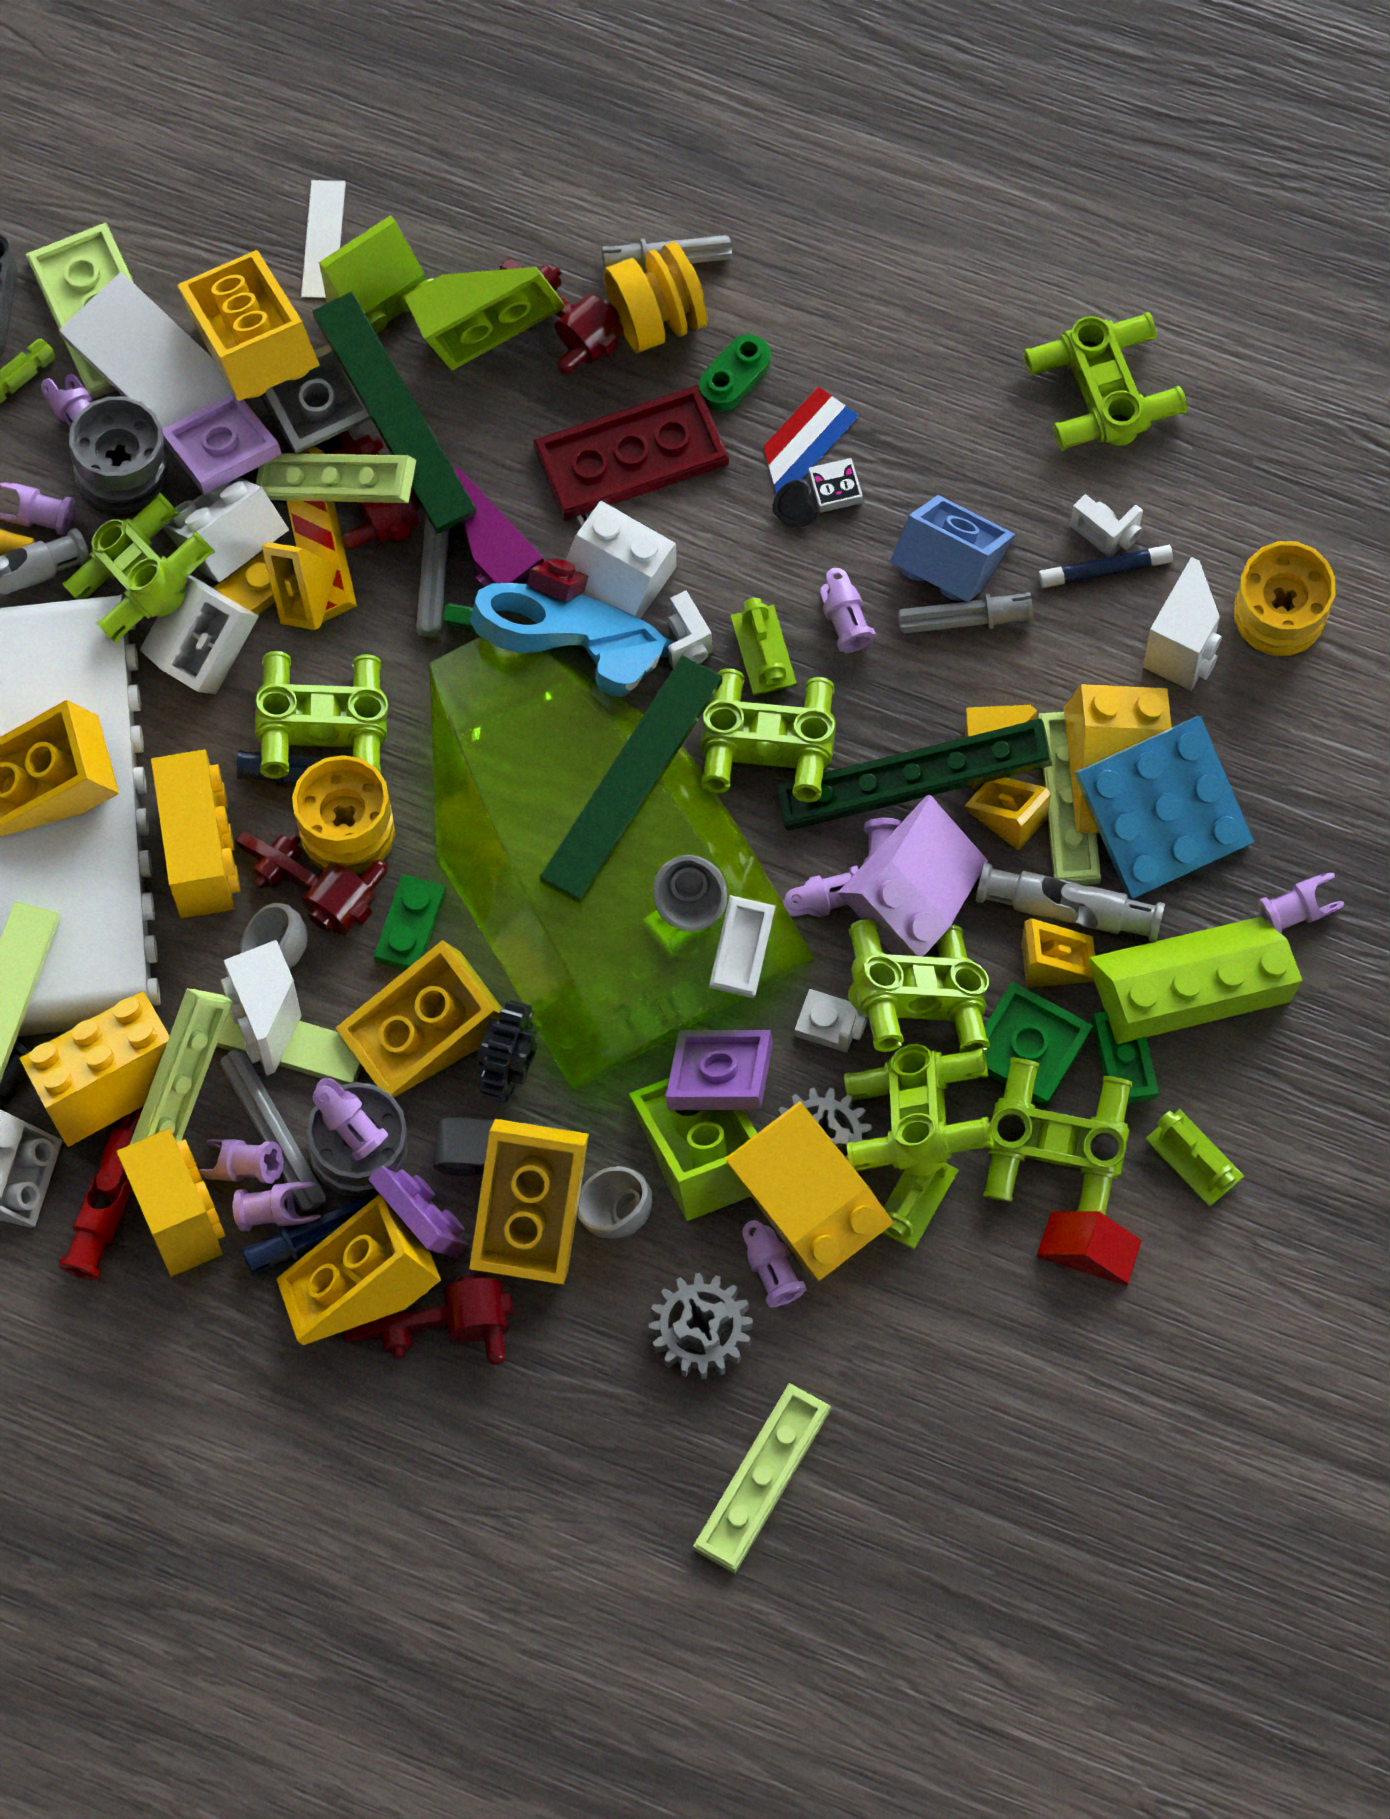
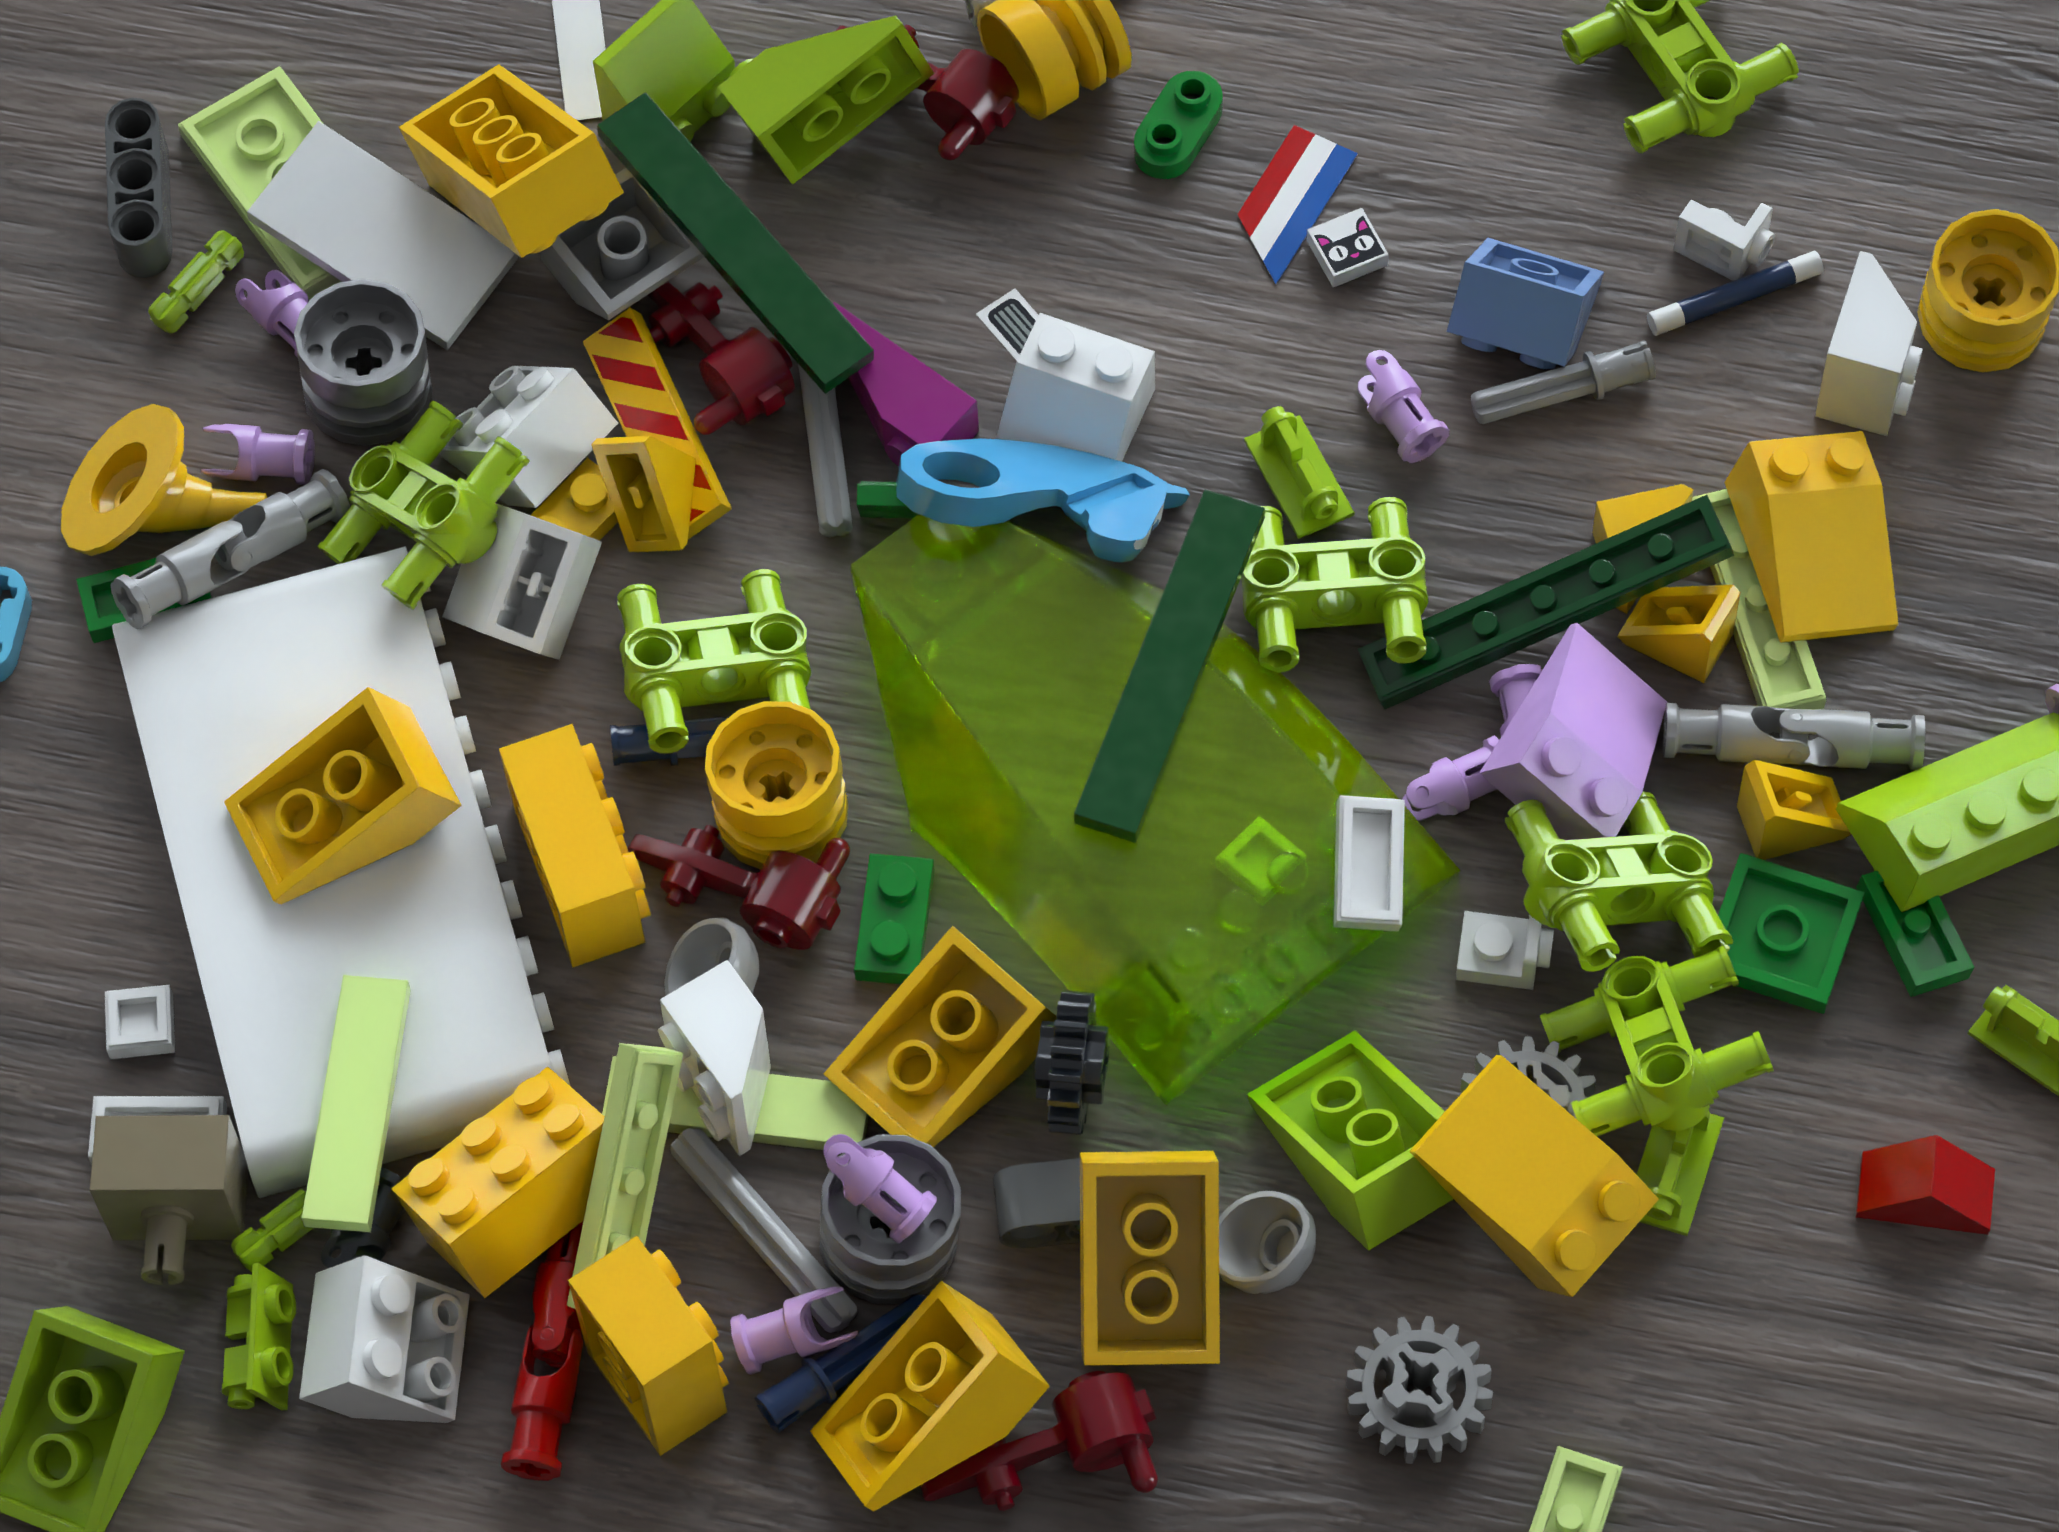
camera: 10 degrees left, 5 degrees down
(220, 443) = (502, 323): lavender plate -> none
(245, 1161) = (737, 1275): lavender piece -> none
(338, 478) = (674, 340): yellowish green tile -> none
(413, 1204) = (984, 1284): medium lavender plate -> none
(558, 579) = (1002, 426): dark red plate -> none
(631, 452) = (1060, 249): dark red tile -> none
(689, 629) = (1192, 463): white bracket -> none
(690, 893) = (1286, 800): light grey piece -> none
(719, 1070) = (1369, 1038): medium lavender plate -> none
(771, 1261) = (1486, 1281): lavender piece -> none
(794, 505) = (1297, 279): black piece -> none
(1057, 1137) = (1852, 1048): lime piece -> none
(1164, 807) = (1893, 588): dark azure plate -> none

